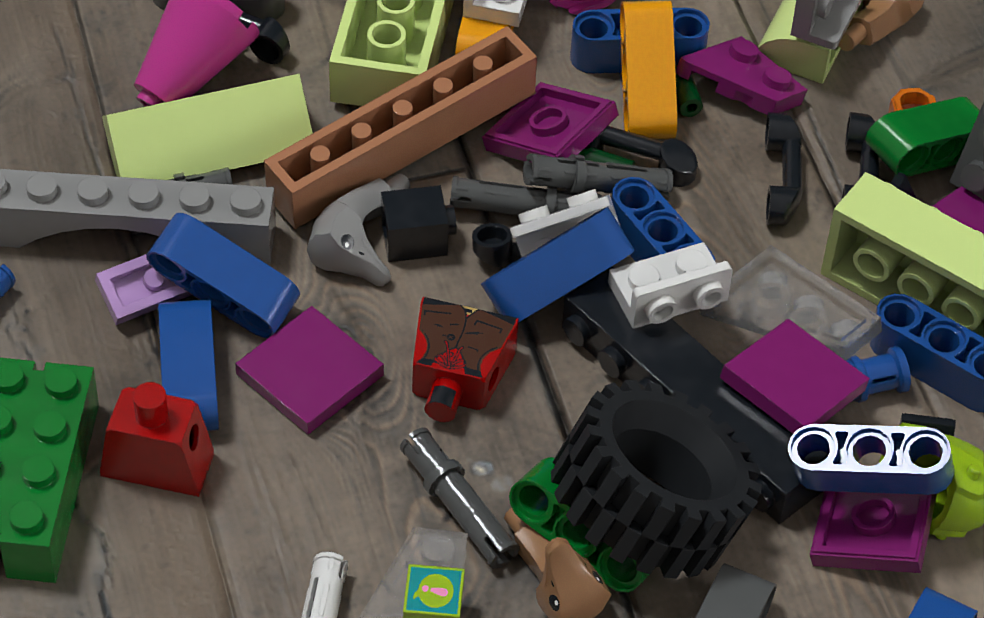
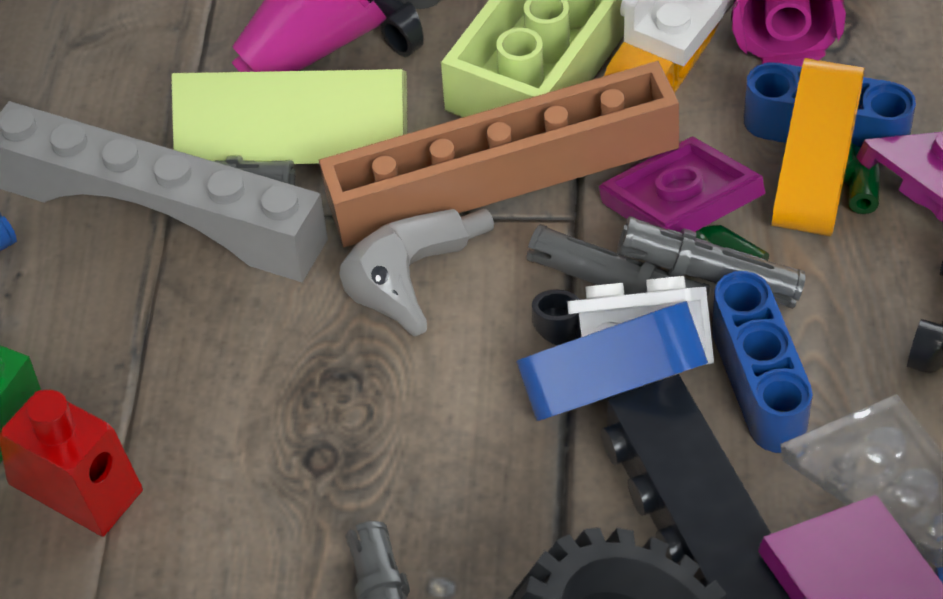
camera: 25 degrees right, 0 degrees up
(135, 289) = (156, 271): lavender plate -> none
(189, 355) = (153, 376): blue beam -> none
(225, 273) = (227, 283): blue beam -> none
(309, 369) = (288, 417): magenta tile -> none
(416, 223) = (477, 271): black brick -> none
(460, 356) = (461, 444): torso -> none
(670, 285) = (739, 416): white bracket -> none
(671, 153) = (817, 255): black bar -> none

